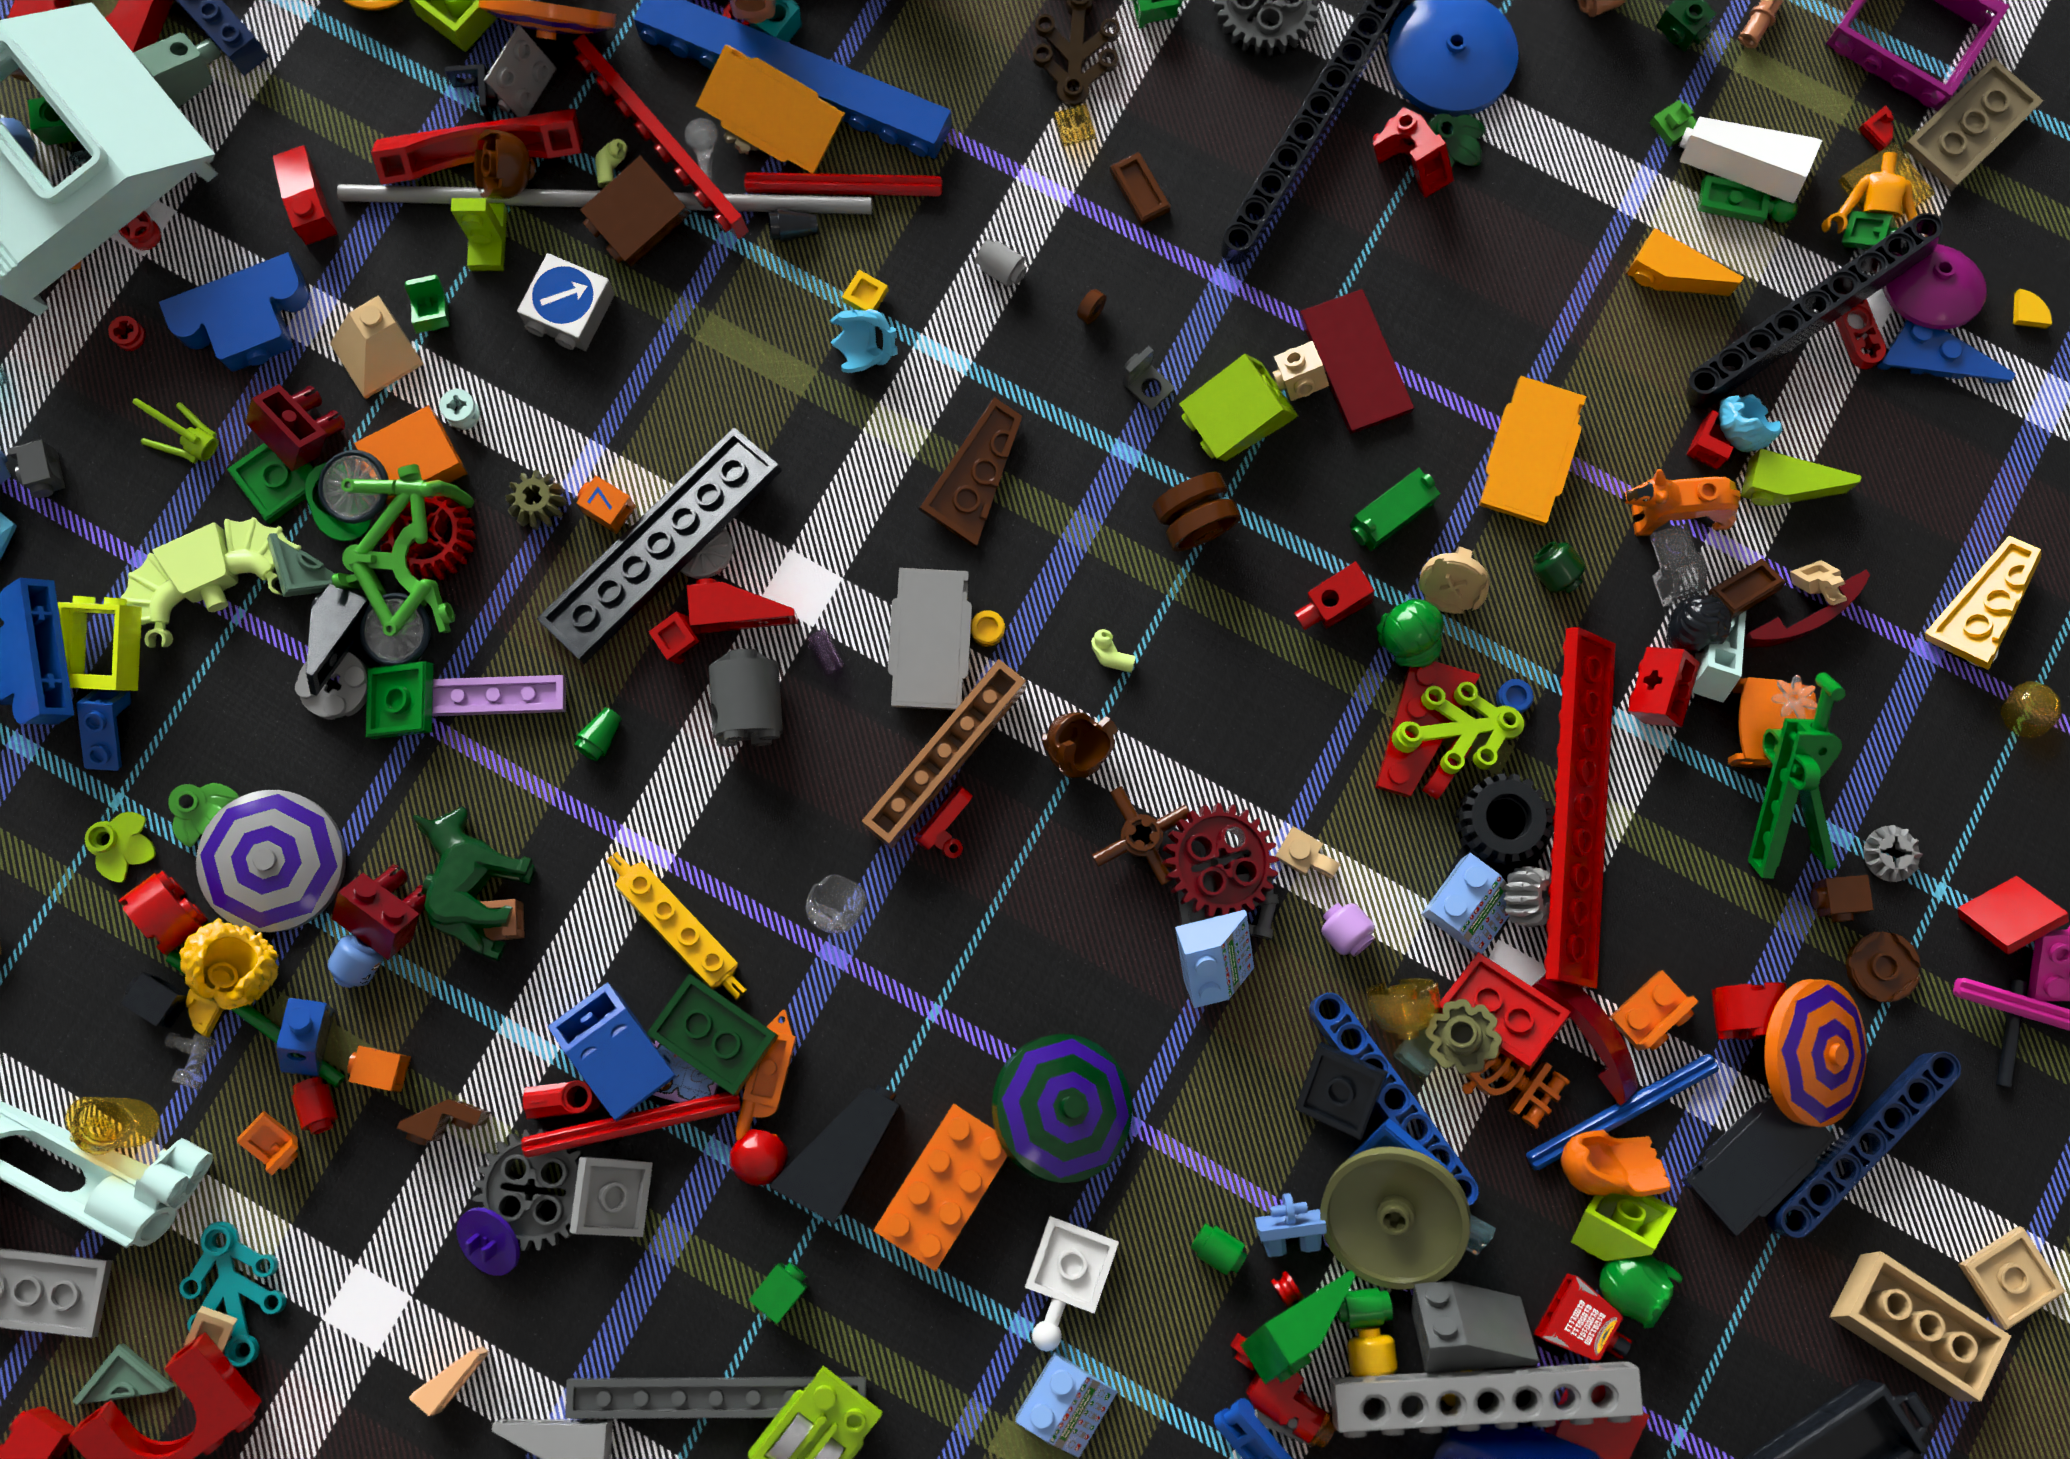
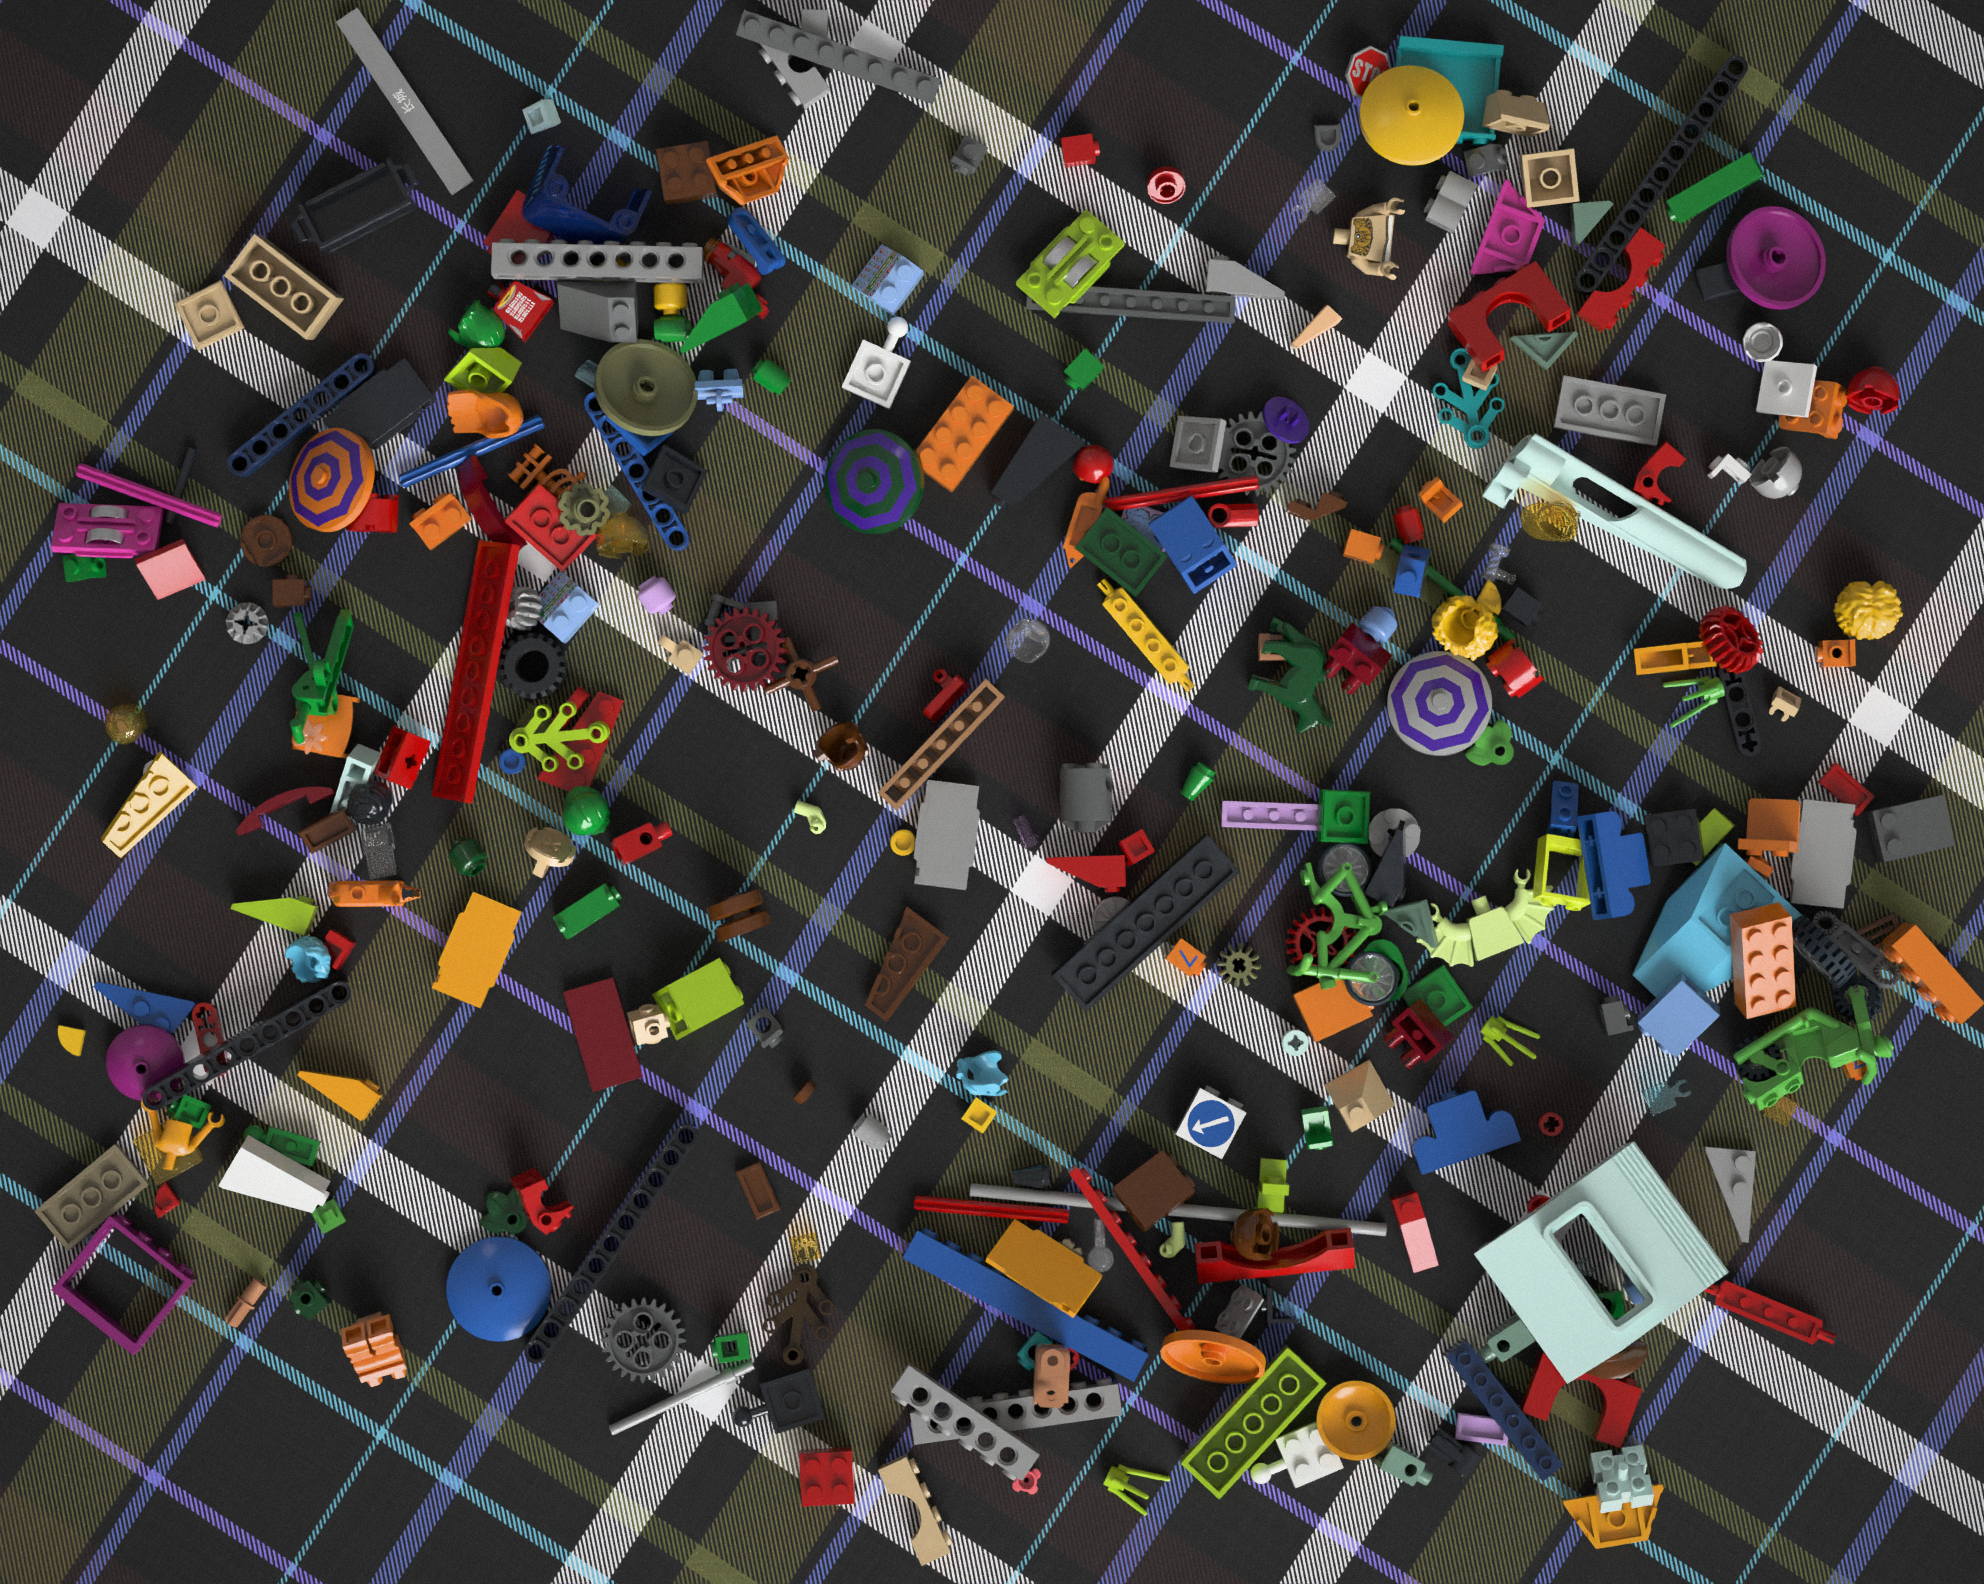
camera: 170 degrees left, 10 degrees up
(124, 847) = (1547, 722): lime plate -> none
(1215, 957) = (755, 580): light blue slope -> none
(1287, 1289) = (725, 345): red bush -> none
(1818, 579) = (272, 833): tan plate -> none

